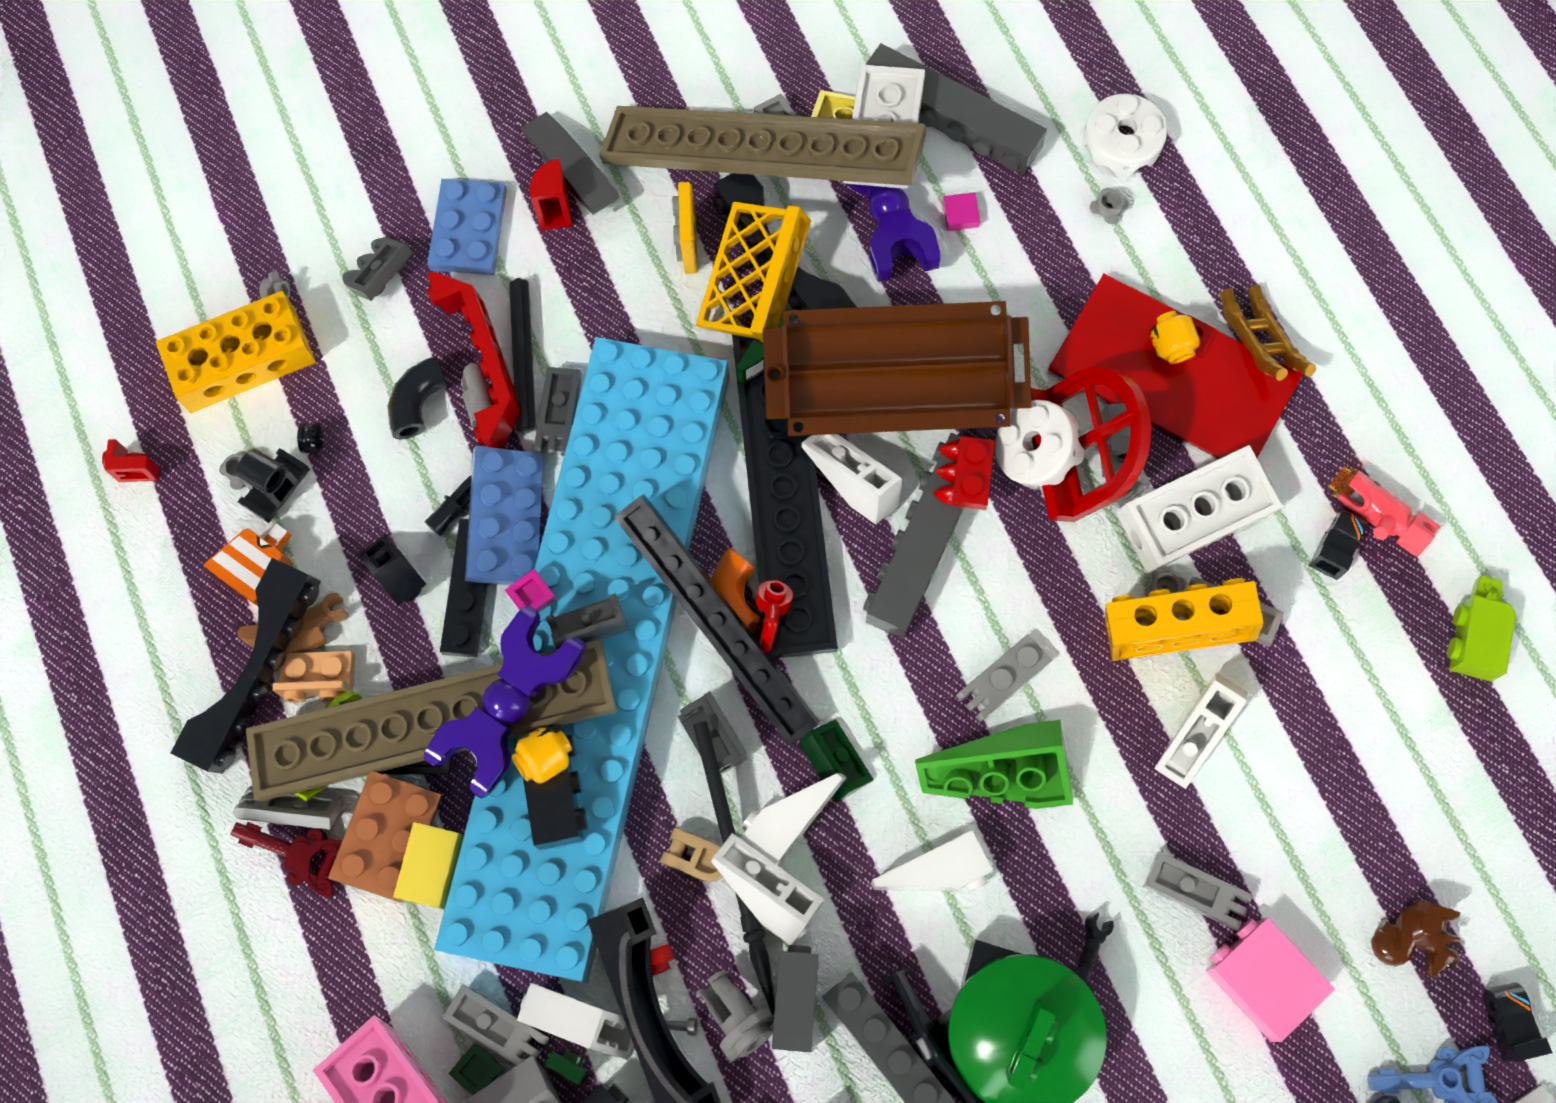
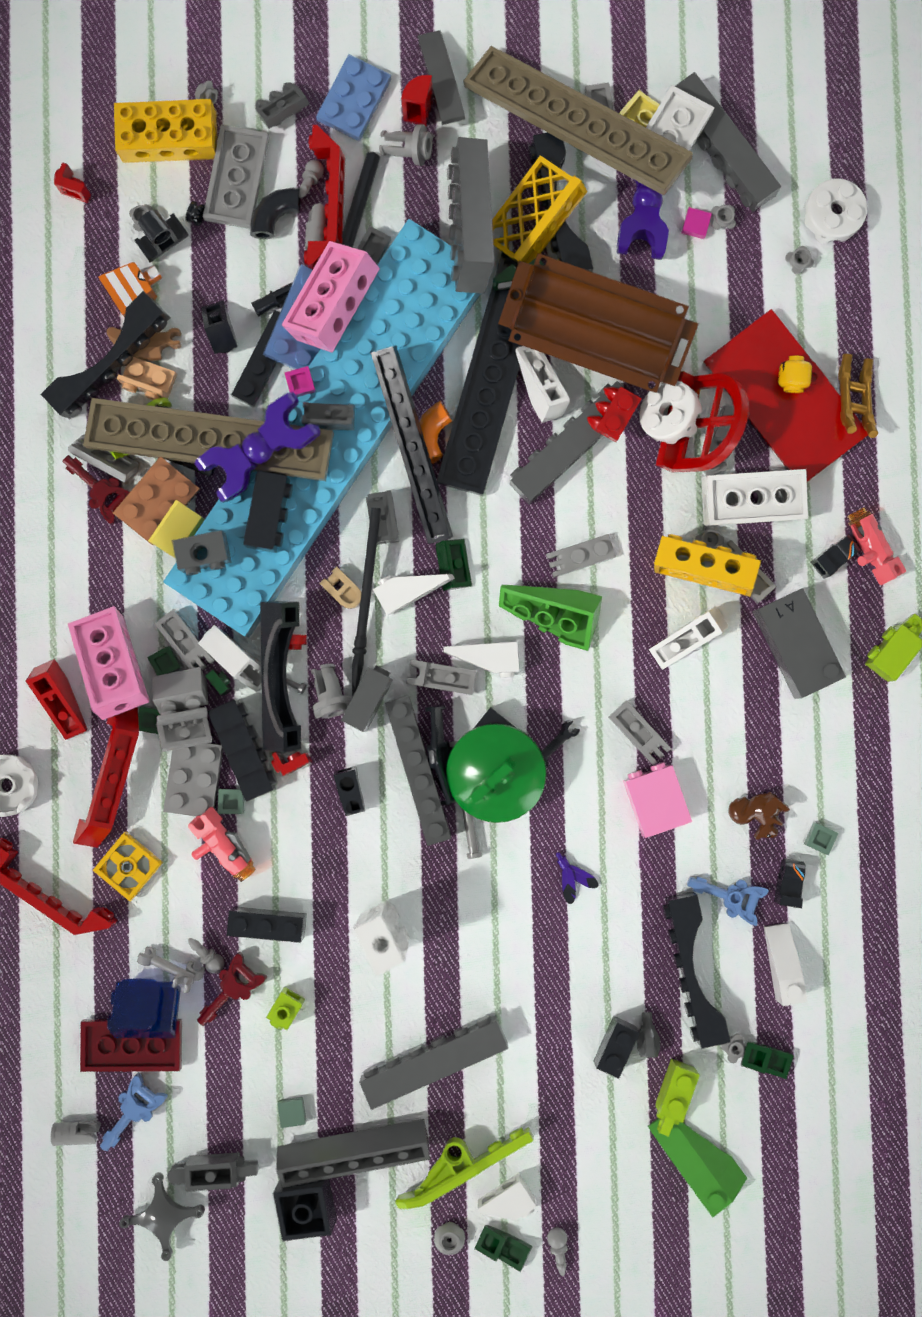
camera: 20 degrees right, 15 degrees up
(348, 374) = (236, 176): none -> light grey plate
(447, 337) = (313, 172): none -> light grey bar
(454, 883) = (187, 549): none -> dark grey brick
(531, 469) = (331, 296): none -> bright pink brick
(542, 754) = (267, 490): yellow head -> none
(571, 249) = (417, 144): none -> light grey piece
(677, 303) = (470, 215): none -> dark grey brick
(685, 227) = (499, 165): yellow piece -> none
(766, 889) = (377, 627): white slope -> none
(774, 600) = (454, 448): red plate -> none
(888, 925) = (443, 677): none -> light grey plate
(993, 184) = (723, 210): none -> light grey plate
(1353, 678) = (799, 644): none -> dark grey brick
(1520, 938) = (821, 838): none -> sand green tile

